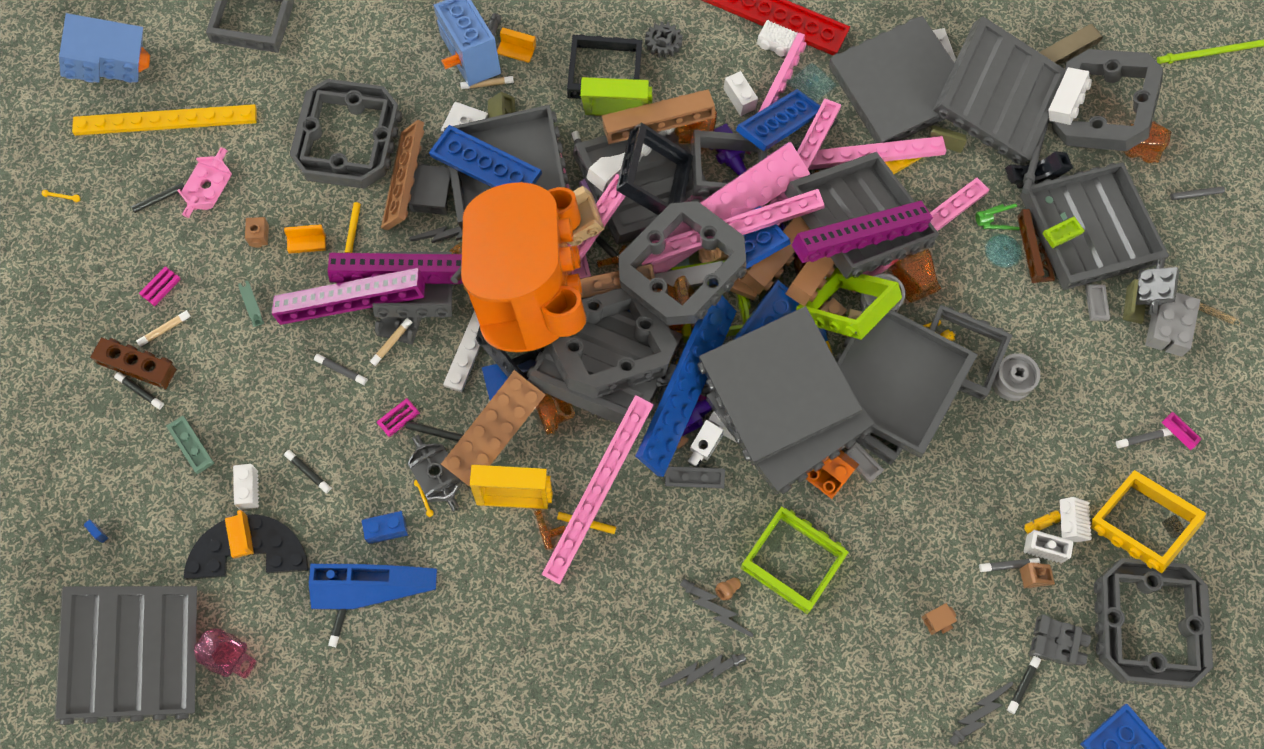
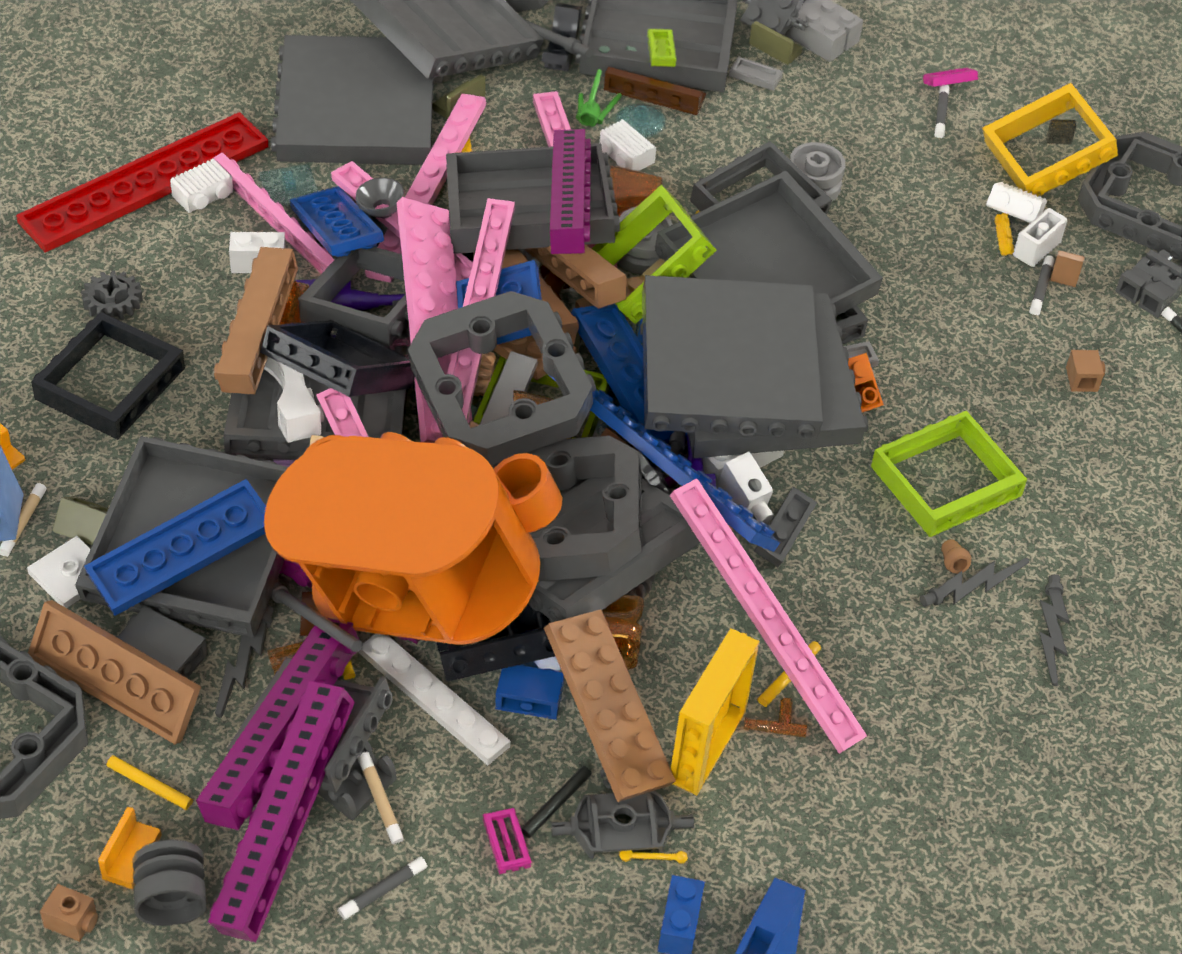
camera: 65 degrees left, 20 degrees down
(287, 266) = (169, 883): none -> dark grey wheel
(610, 95) = (179, 363): lime window -> none
(808, 127) = (378, 192): none -> dark grey piece
(966, 252) = (627, 146): none -> white brick

